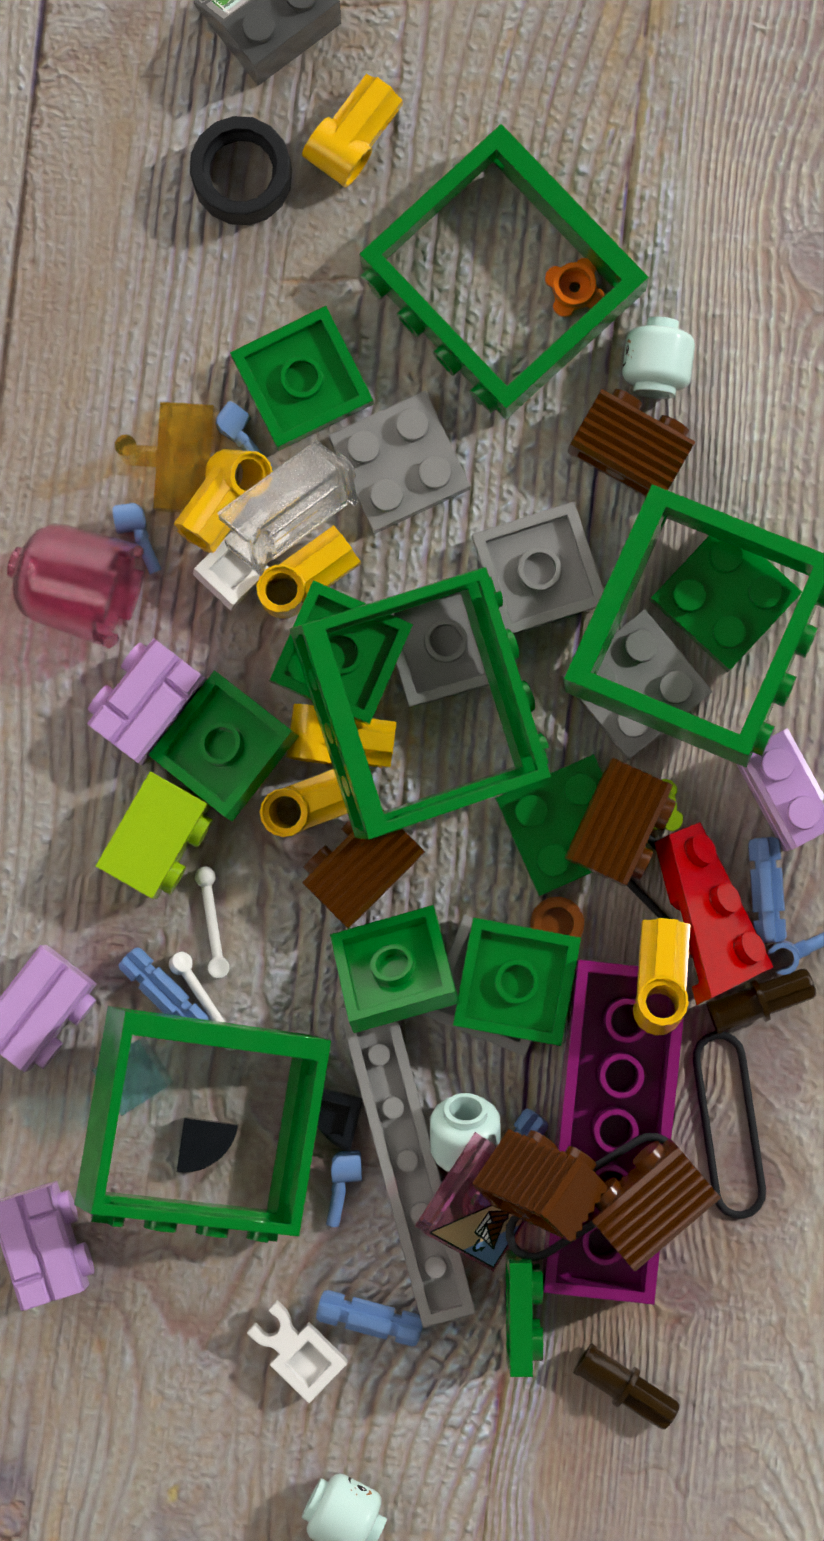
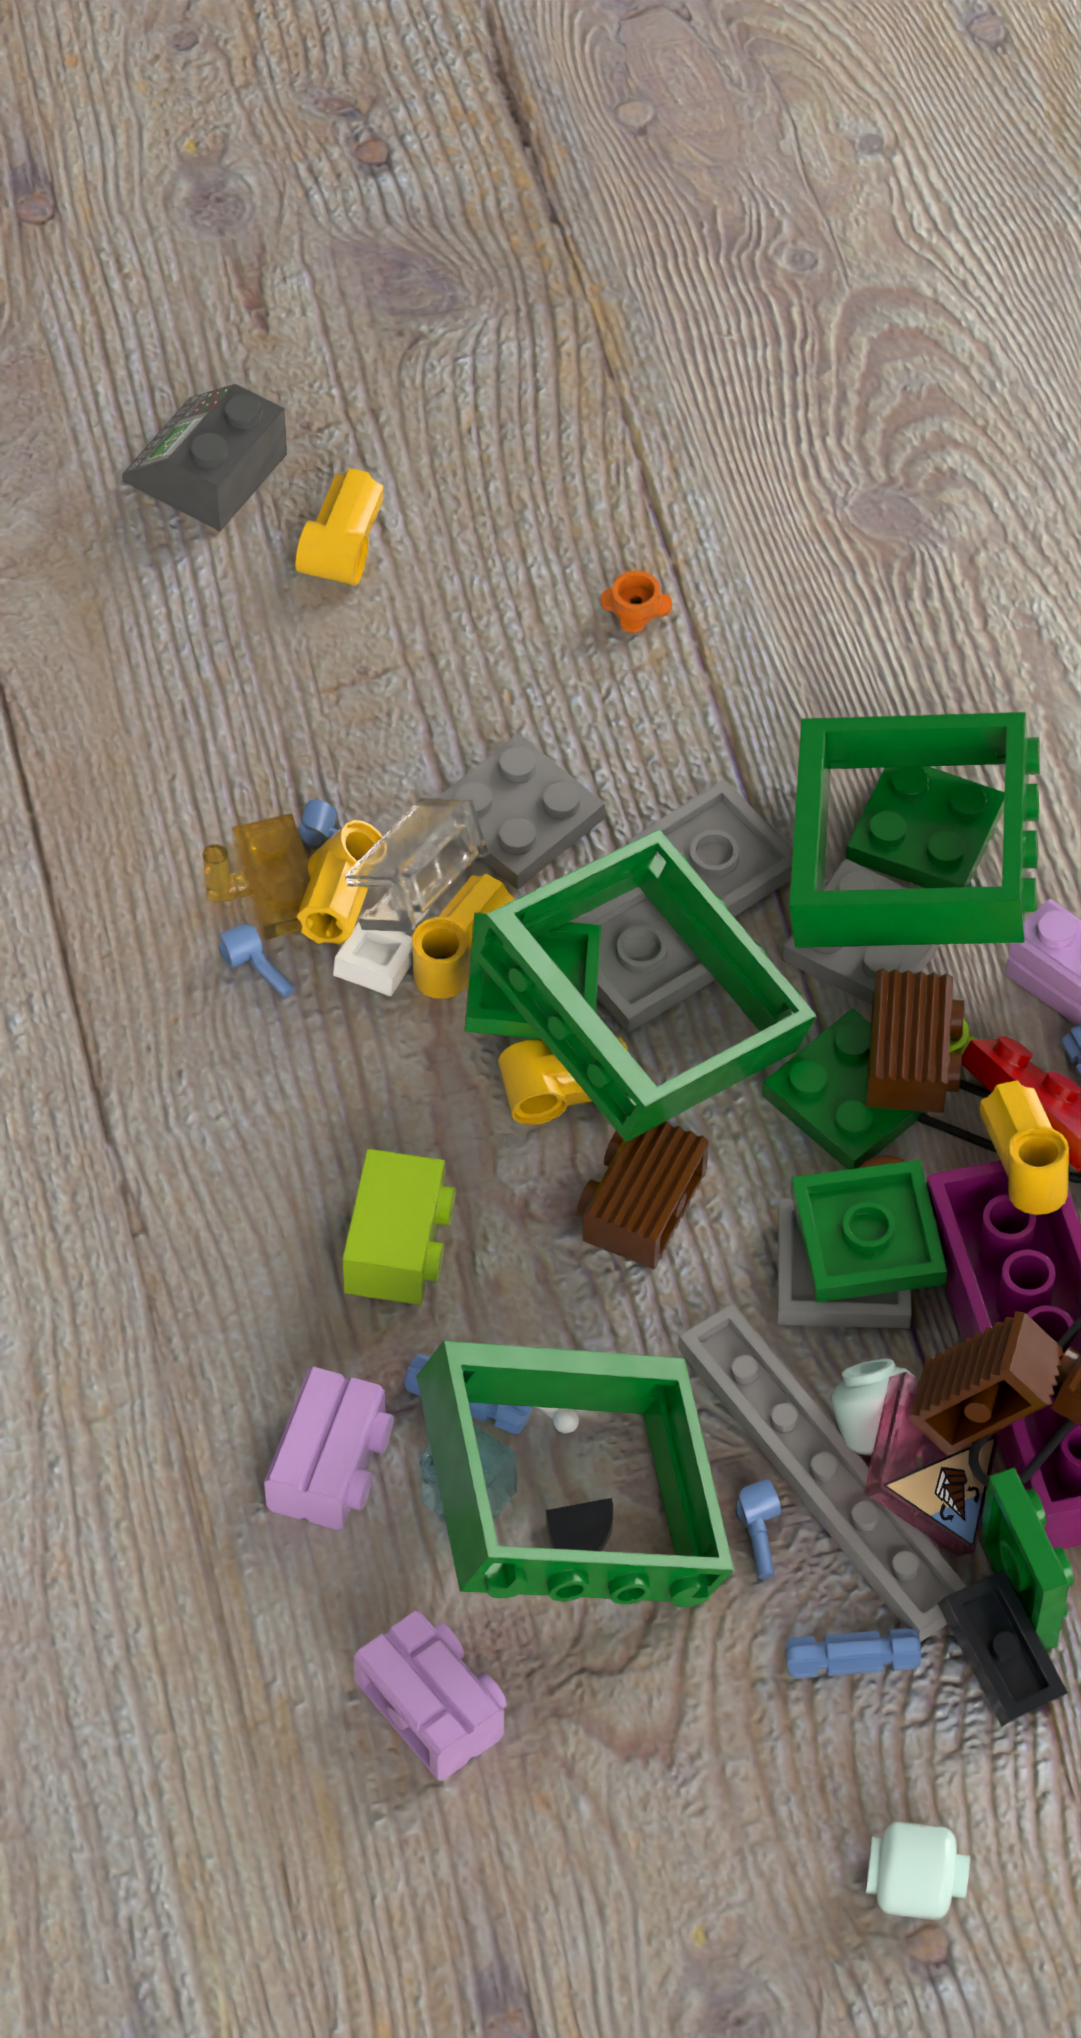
camera: 20 degrees left, 30 degrees down
(76, 581) = (207, 1005): clear pink cylinder -> none
(144, 700) = (331, 1106): lavender brick -> none
(218, 966) = (468, 1269): white hinge -> none
(223, 746) = (441, 1111): green plate -> none
(227, 132) = (230, 562): black tyre -> none
(302, 378) = (378, 760): green plate -> none
(303, 1357) = (791, 1717): white plate -> none
(318, 801) = (566, 1134): yellow piece -> none
(339, 1117) = (728, 1458): black tile -> none
(394, 969) = (725, 1268): green plate -> none
(478, 1364) = (1002, 1648): none -> black plate
(564, 214) = (587, 531): green window -> none
(630, 443) = (756, 713): reddish brown brick -> none
(658, 358) = (755, 633): light aqua head -> none

